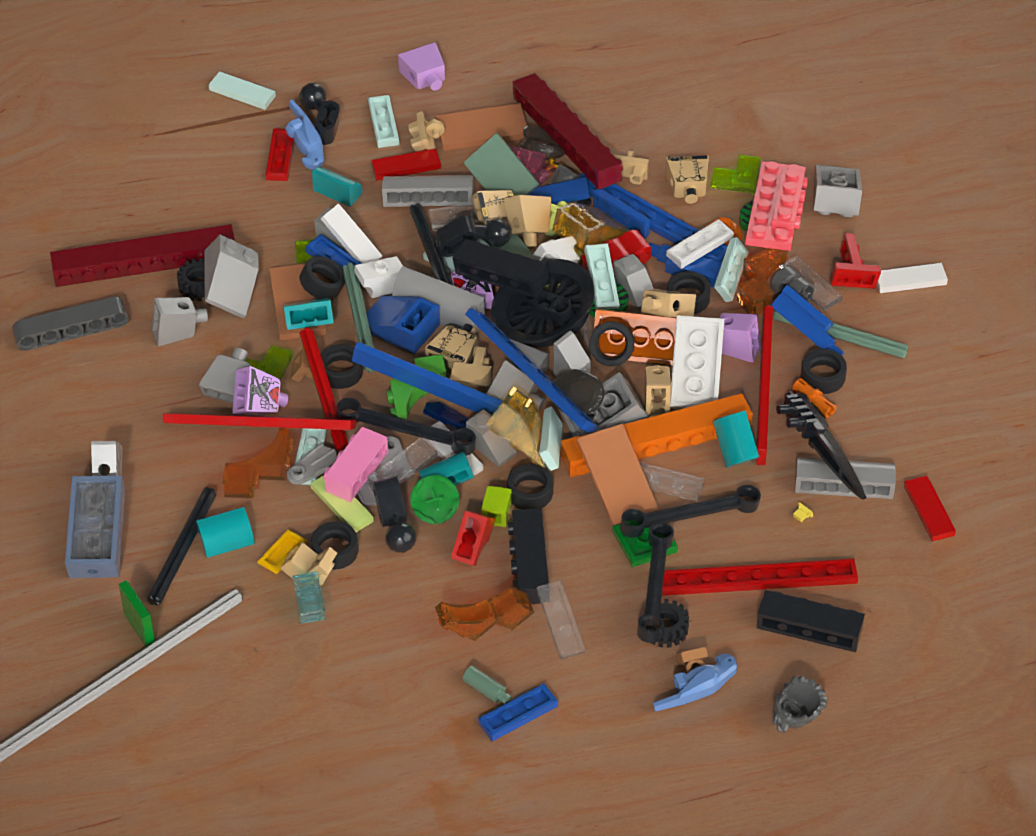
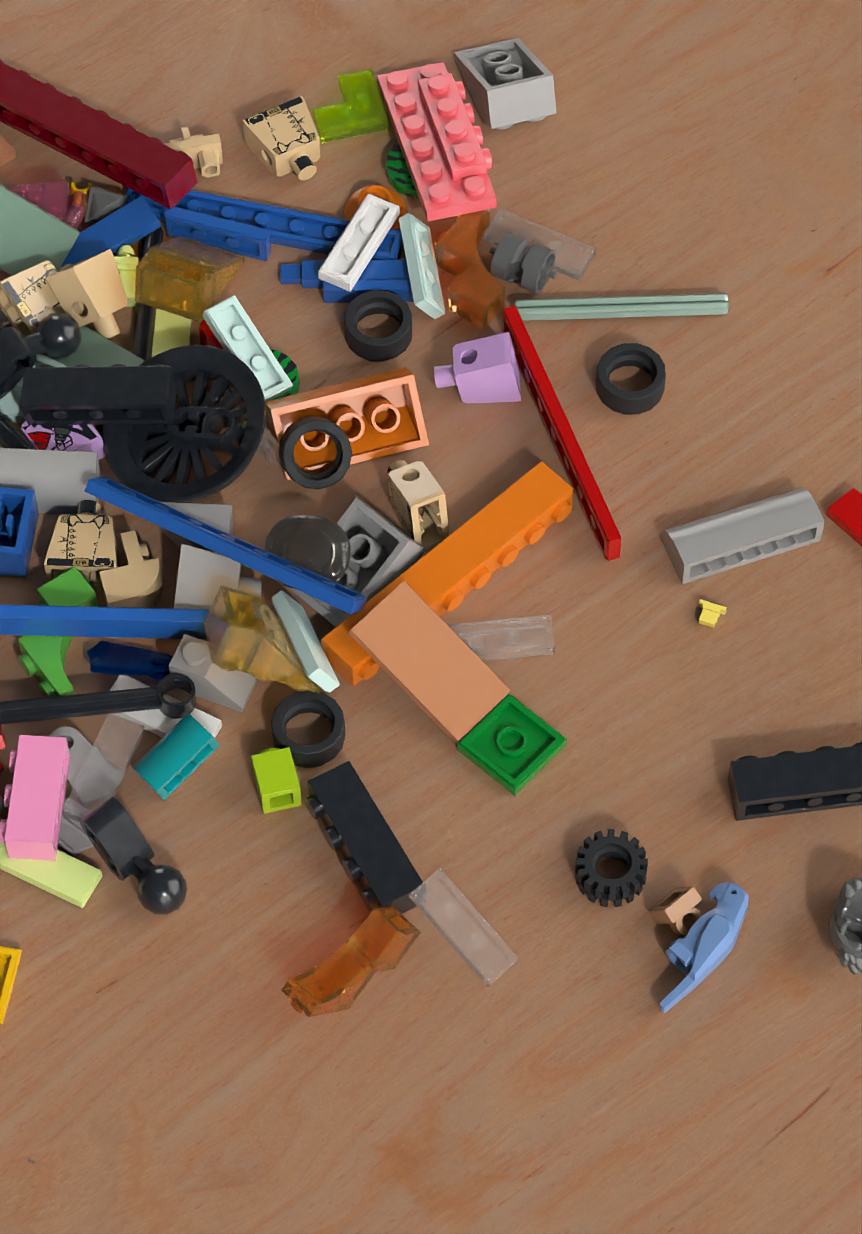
camera: 25 degrees left, 10 degrees up
(305, 560) = (48, 994): tan brick -> none
(309, 597) = (77, 1048): clear light blue brick -> none
(337, 530) = (60, 914): black tyre -> none
(434, 499) = (182, 807): green tile -> none
(472, 537) = (267, 846): red arch -> none
(486, 685) = (406, 1076): sand green cylinder -> none
(518, 712) = (471, 1098): blue tile -> none
(539, 141) = (45, 164): clear smoke piece -> none
(557, 249) = (164, 333): white brick -> none
(569, 355) = (267, 499): light grey slope -> none
(627, 244) = (260, 289): red brick -> none
(633, 277) = (294, 335): light grey slope -> none
(655, 582) = (572, 813): black piece -> none
(661, 302) = (359, 358): tan torso -> none
(690, 510) = (557, 676): black piece -> none
(696, 361) = (453, 434): white tile -> none
(736, 439) = (569, 537): teal brick -> none
(759, 577) = (696, 742): red tile -> none
(805, 318) = (569, 307): blue piece -> none
(809, 421) = (651, 465): black piece -> none
(815, 396) = (637, 425): orange pin -> none
(852, 270) = (592, 204): red bracket -> none
(911, 278) = (674, 184): white tile -> none

